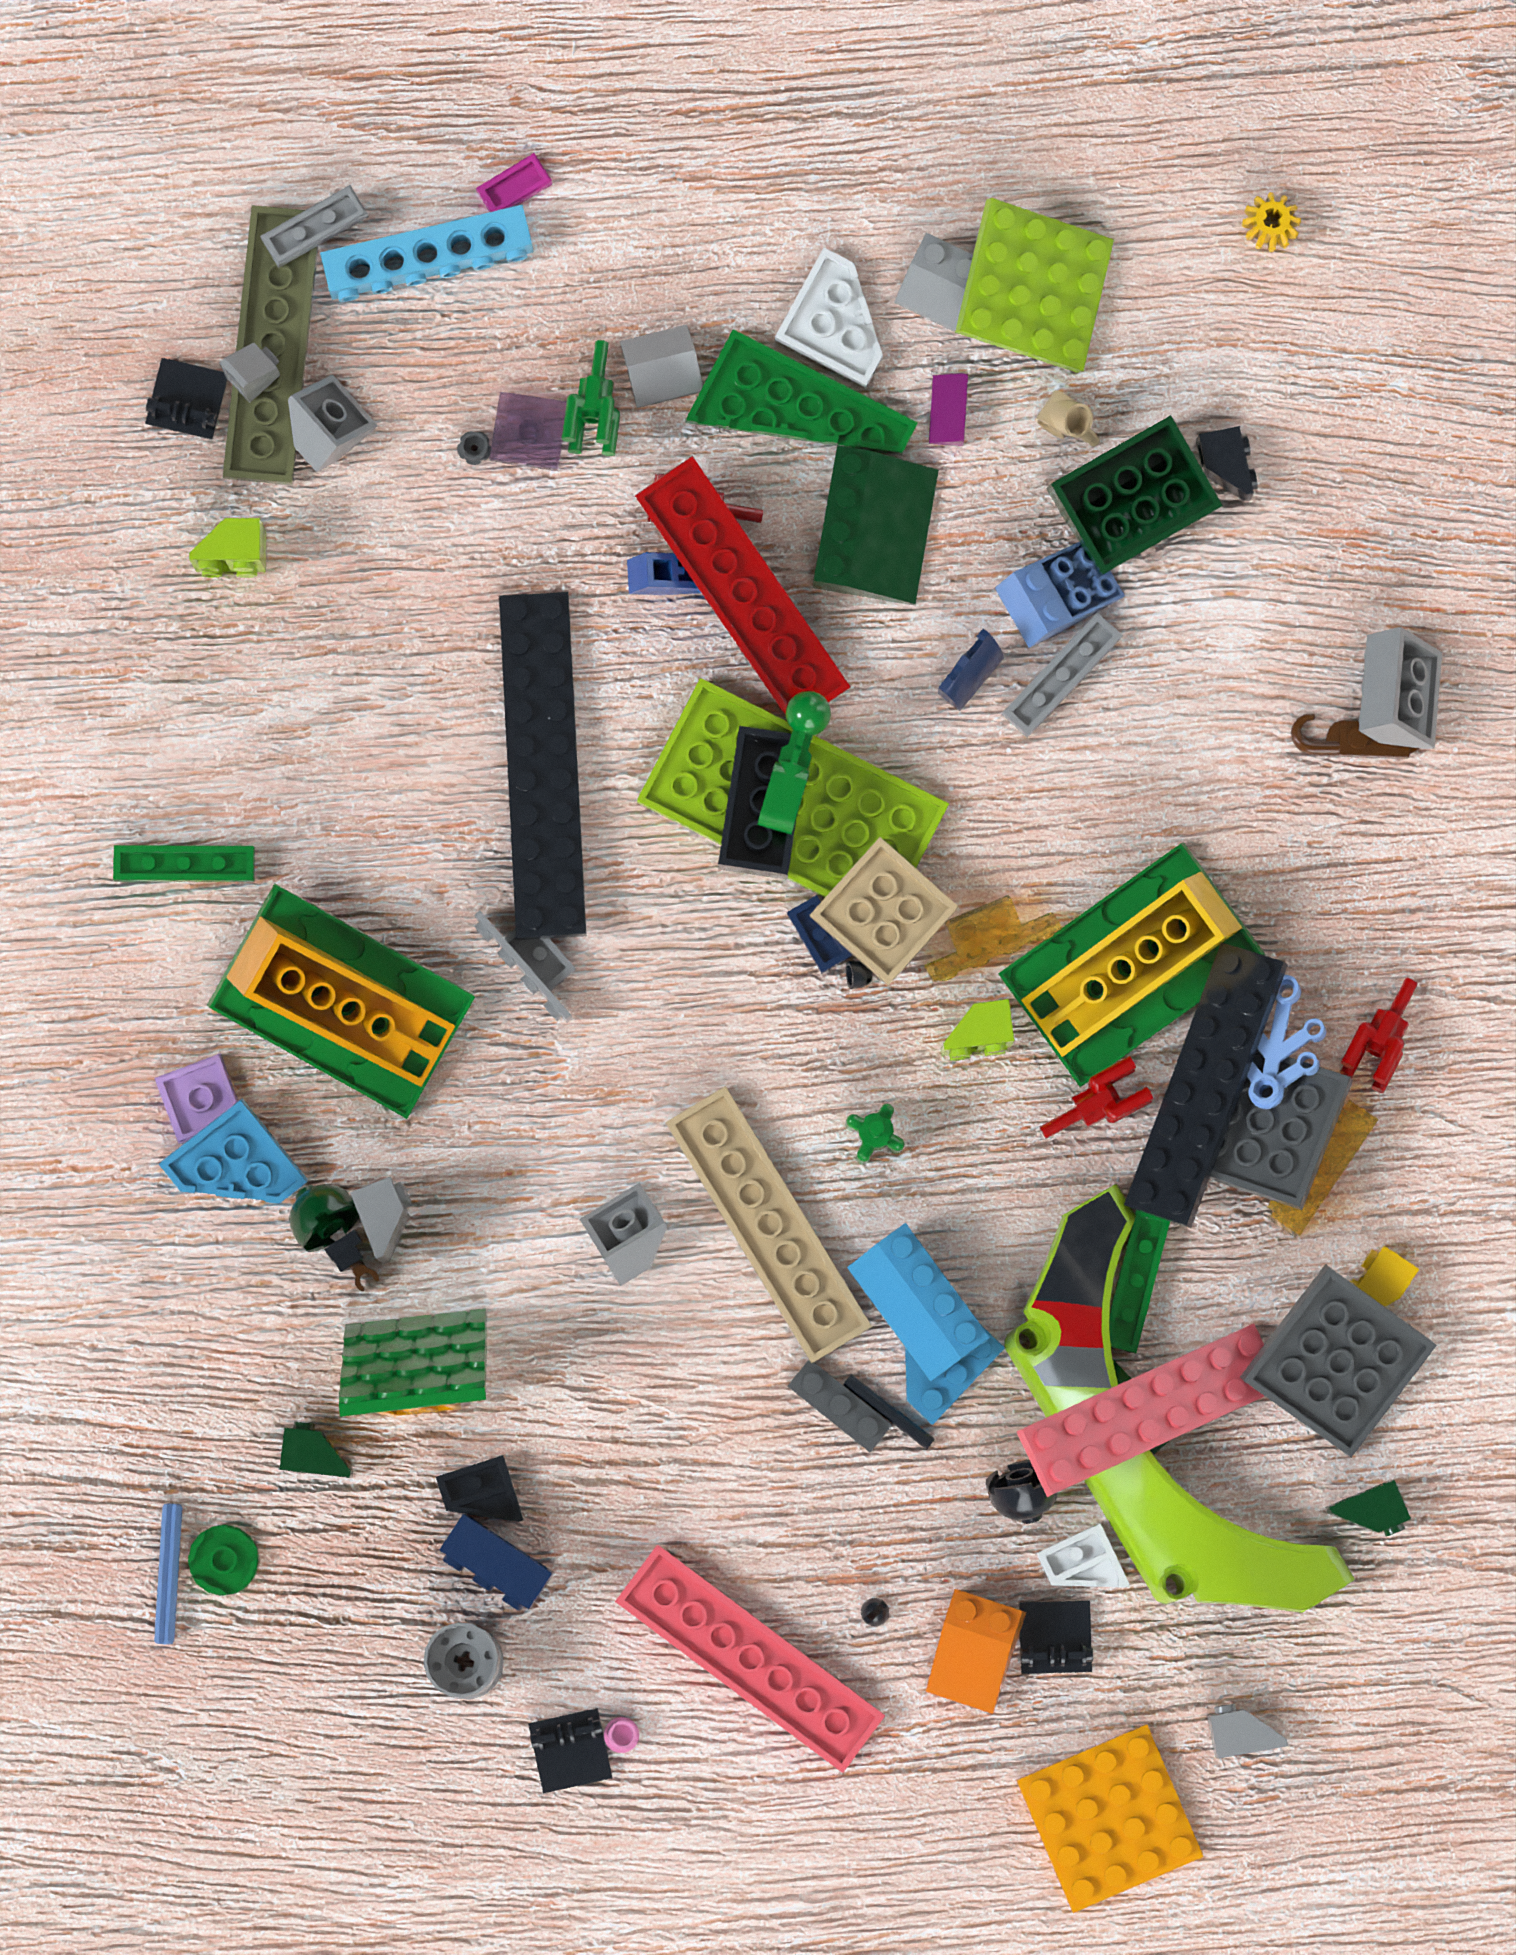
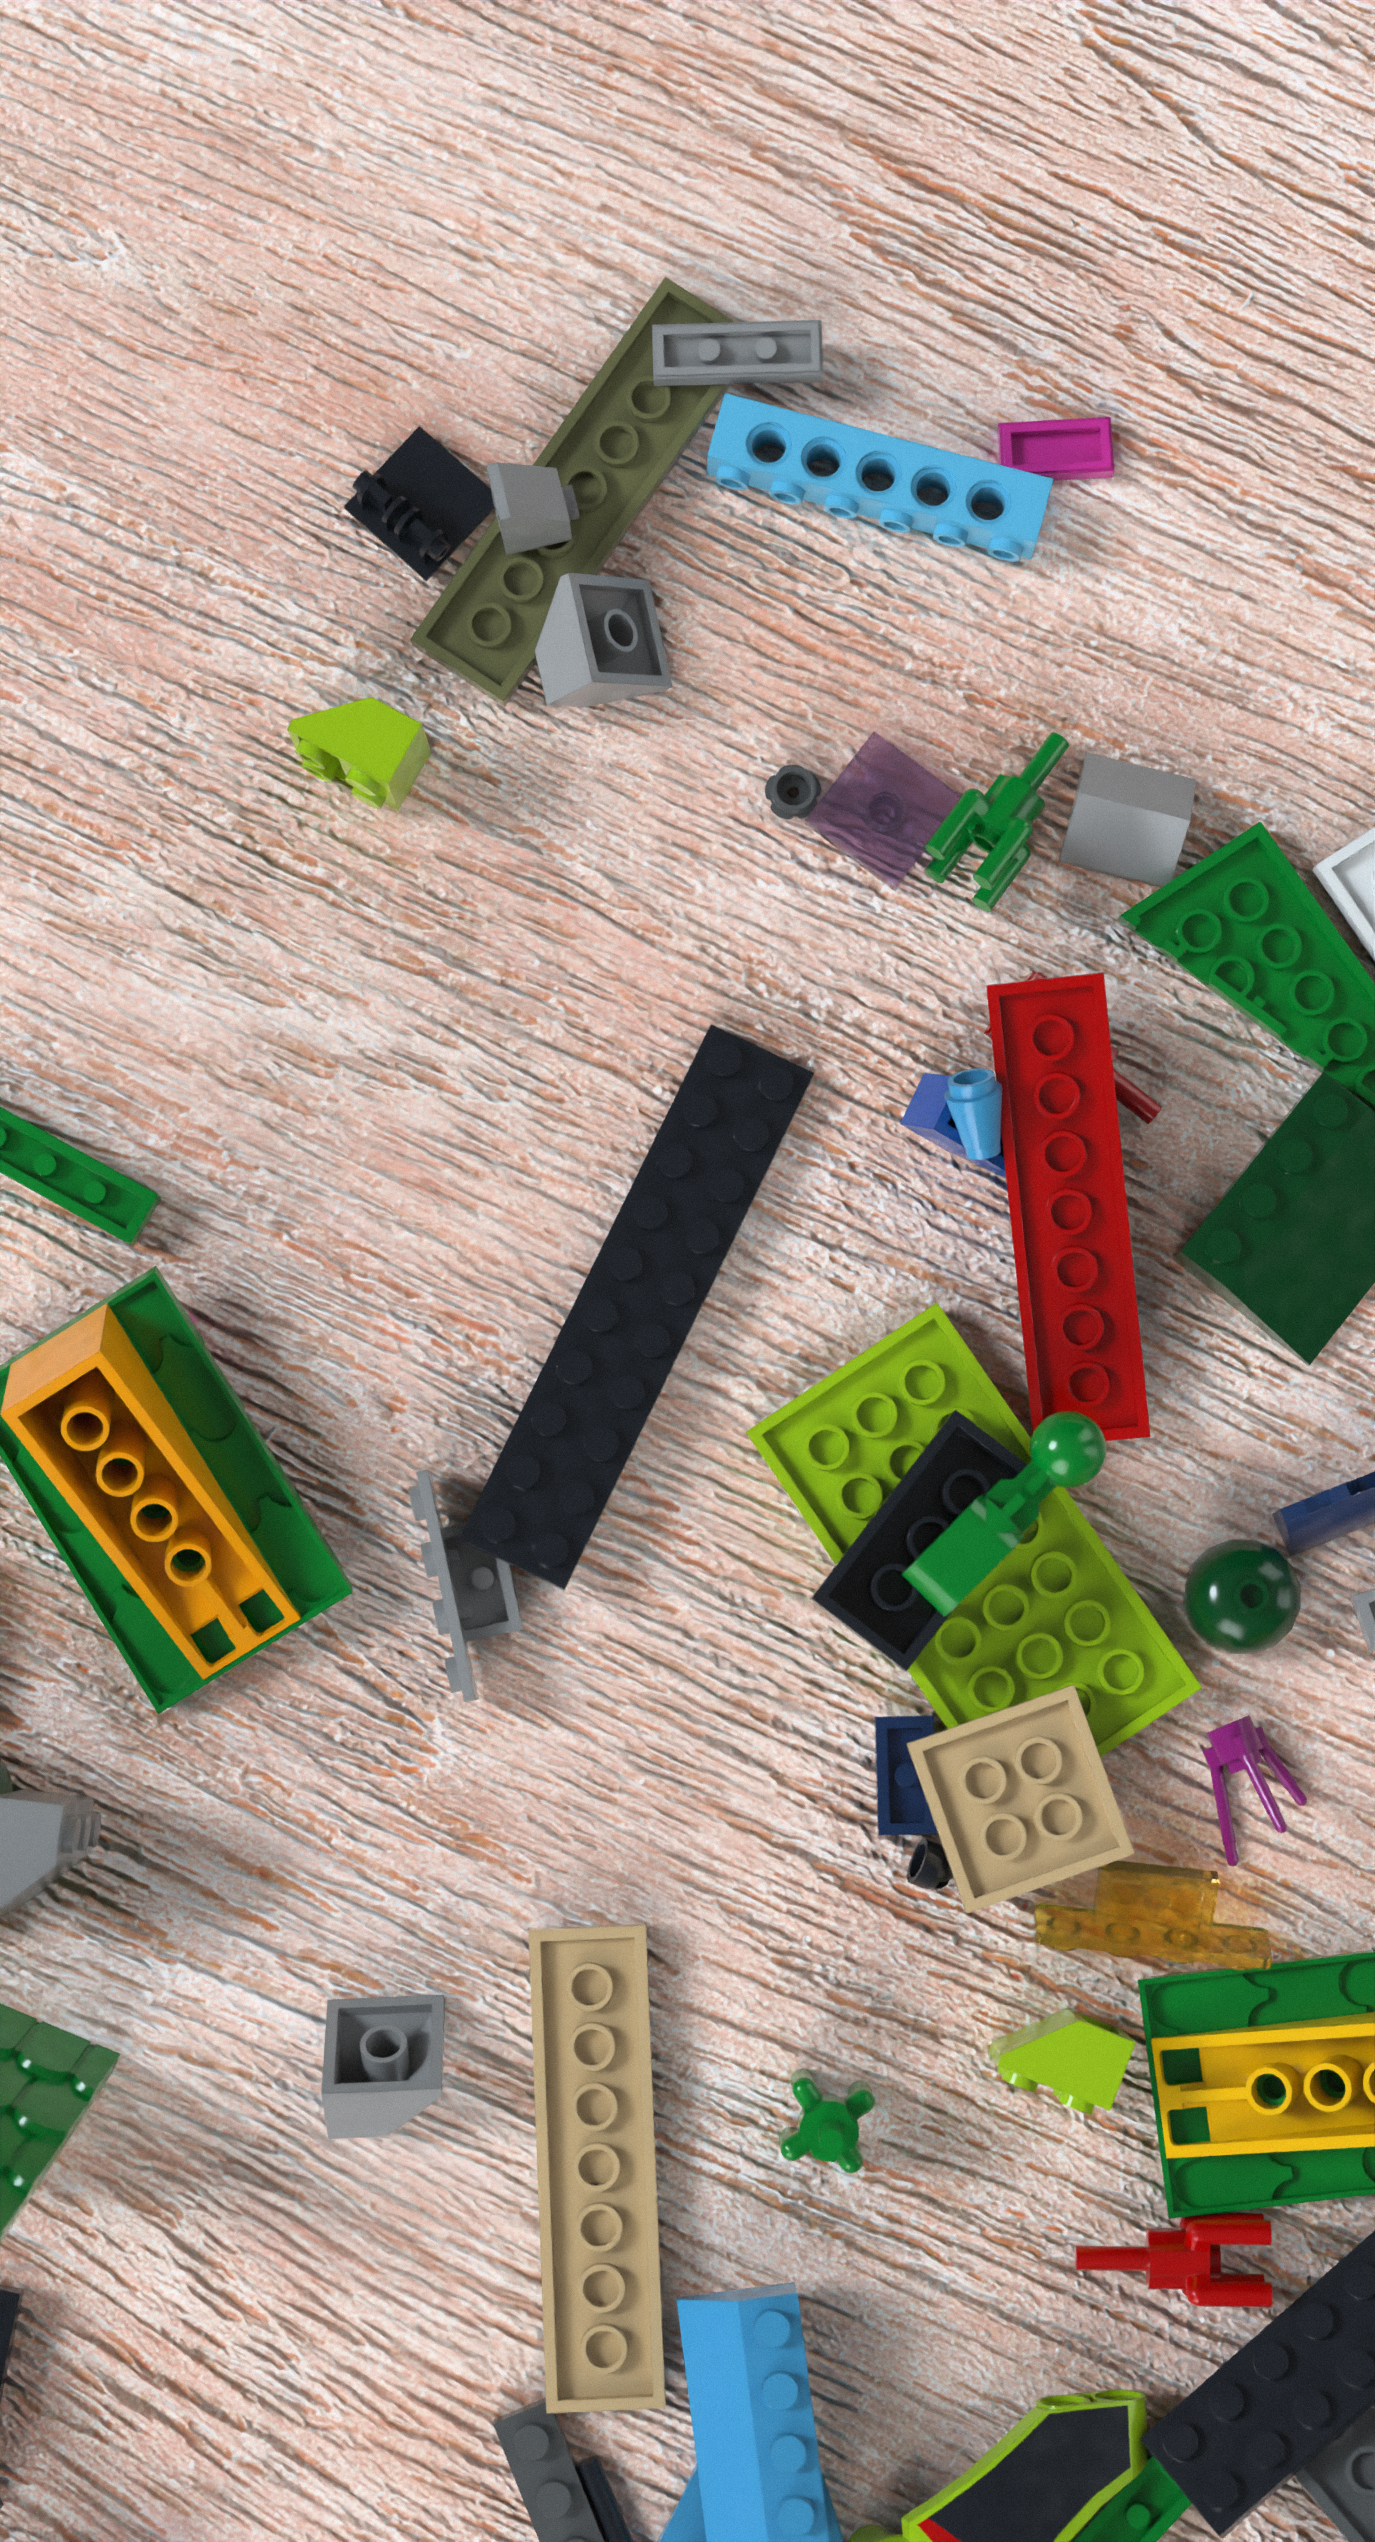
camera: 35 degrees right, 0 degrees up
(665, 564) = (976, 1111): none -> dark azure cone
(945, 745) = (1242, 1596): none -> dark green cylinder
(986, 824) = (1240, 1748): none -> magenta plant

